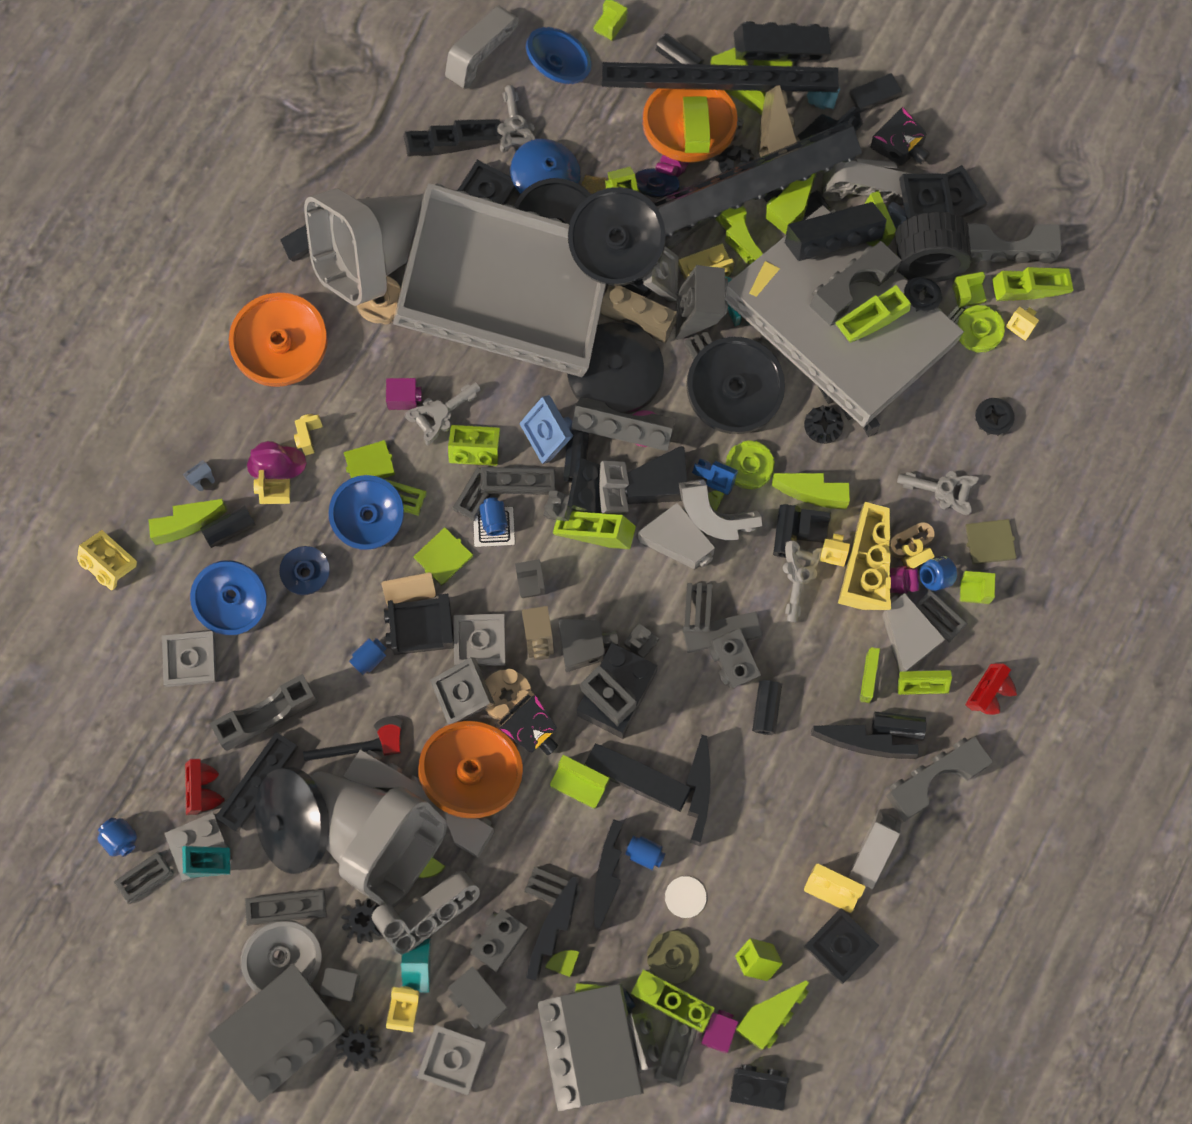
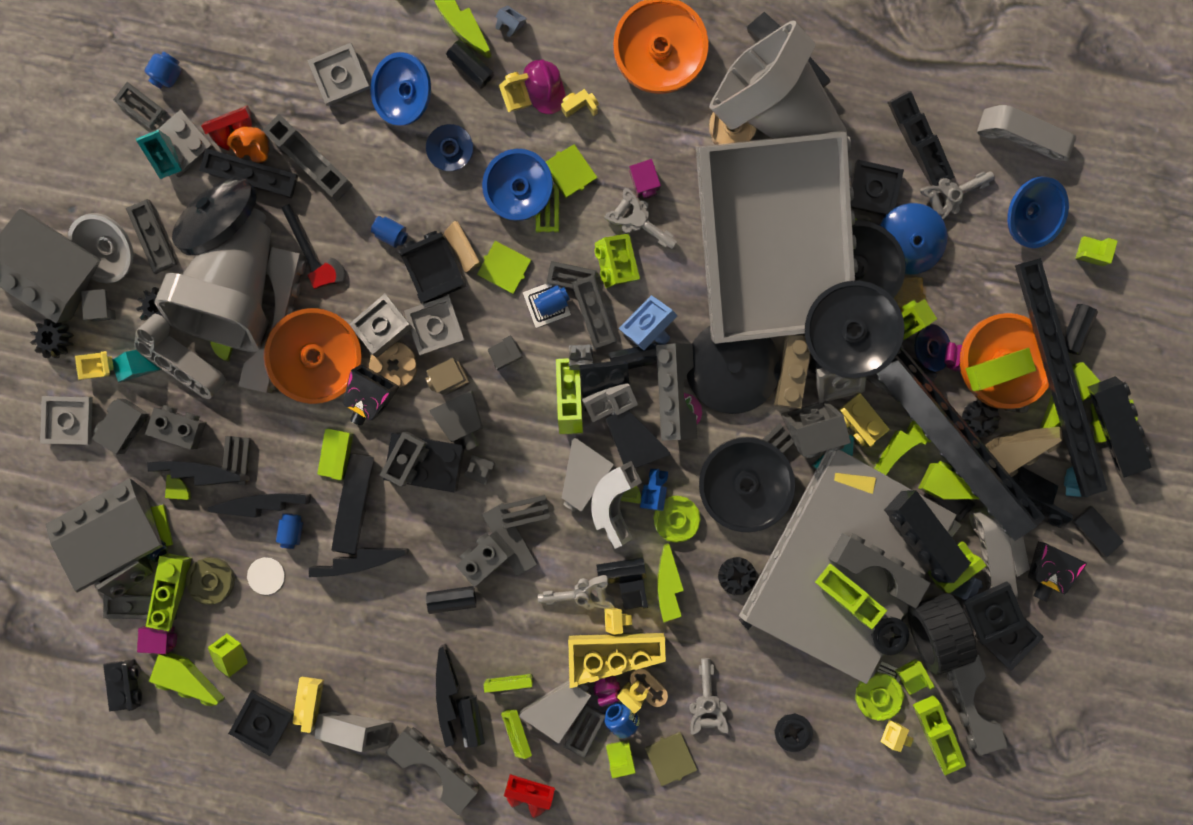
camera: 75 degrees right, 15 degrees up
(227, 767) = (250, 142): none -> orange hair

